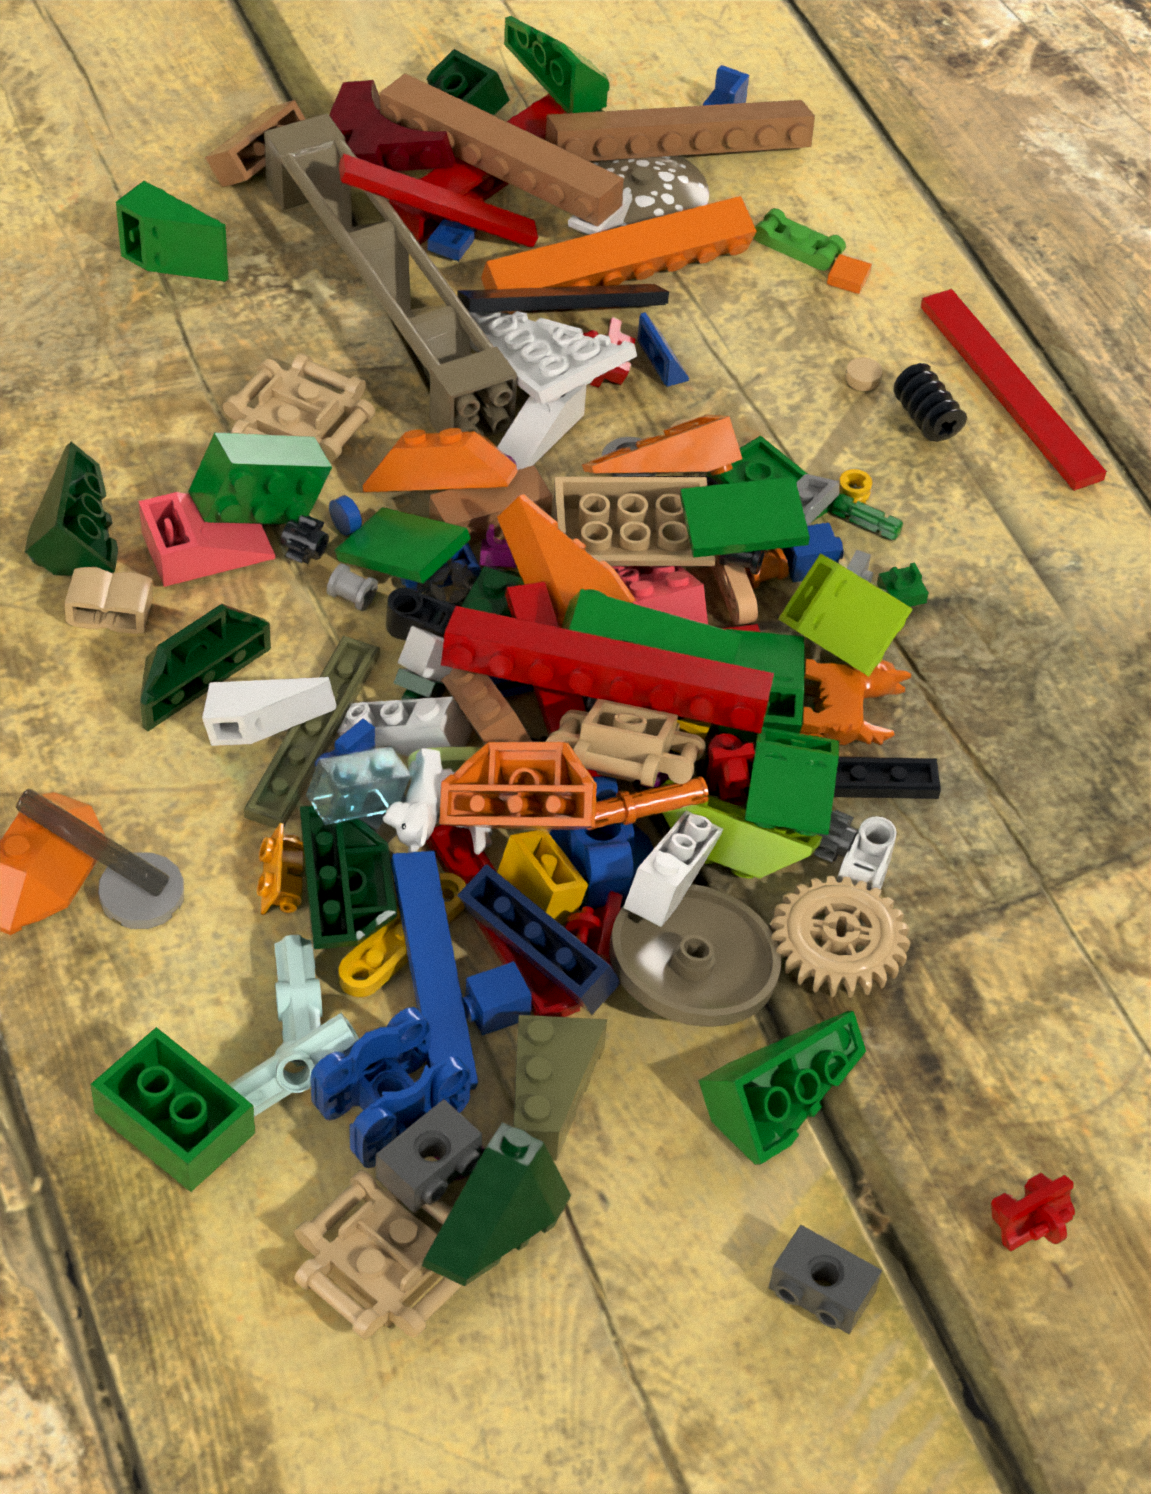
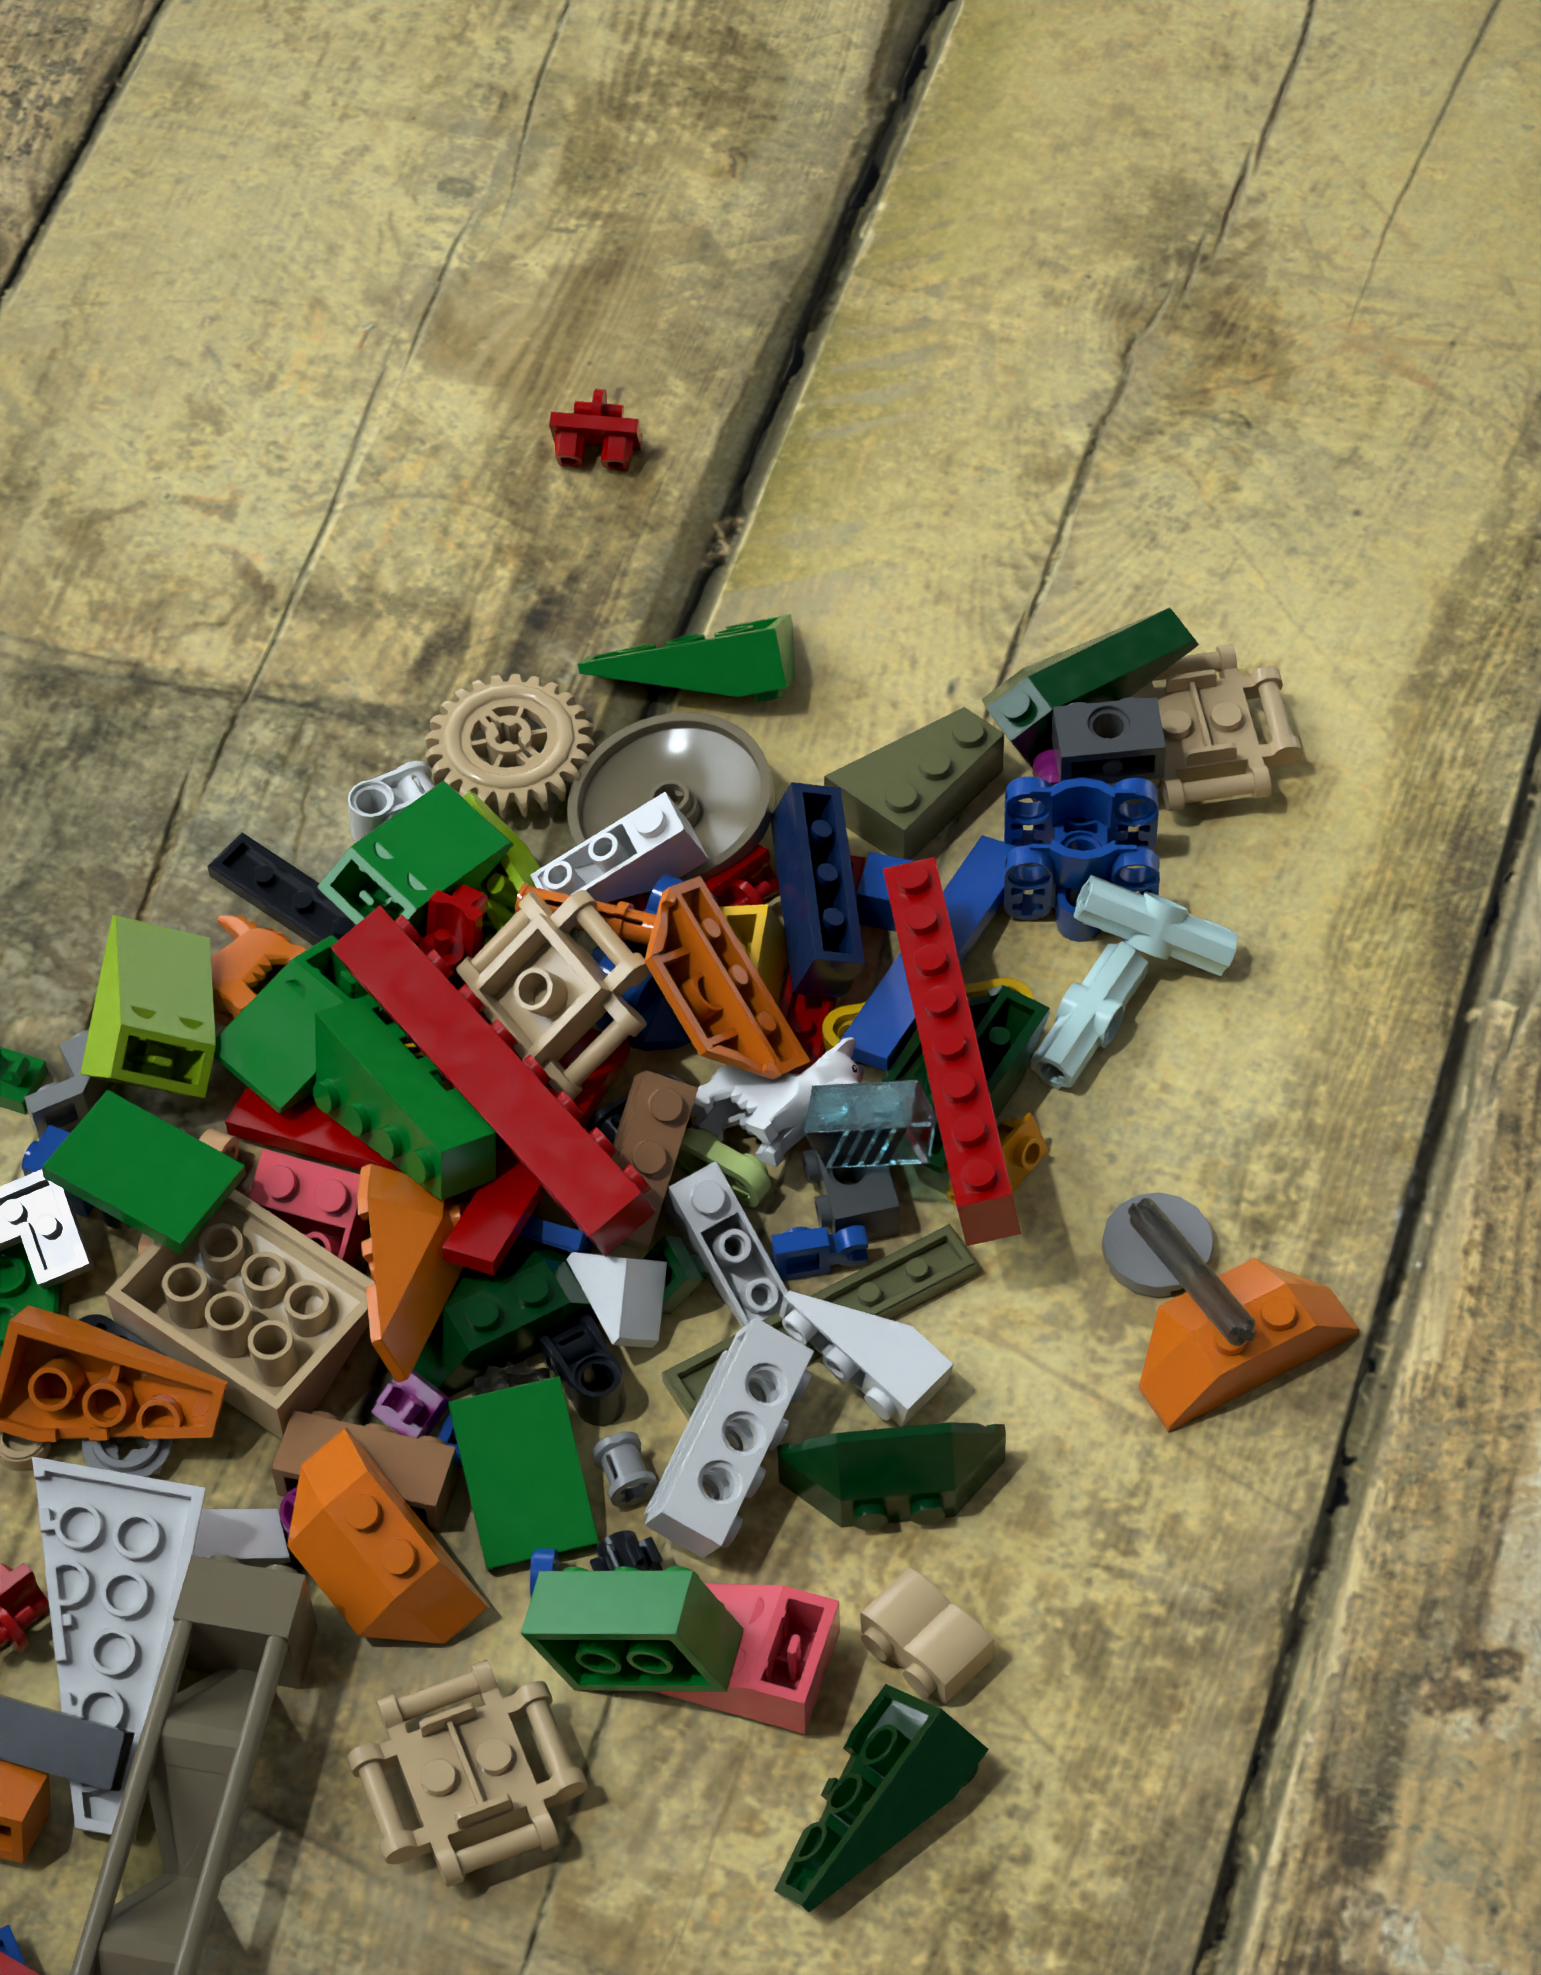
camera: 135 degrees left, 5 degrees up
(173, 1109) = (1303, 964): green brick -> none
(298, 607) = (776, 1373): none -> white brick
(350, 856) = (951, 1053): none -> red brick
(815, 1257) = (833, 492): dark grey brick -> none

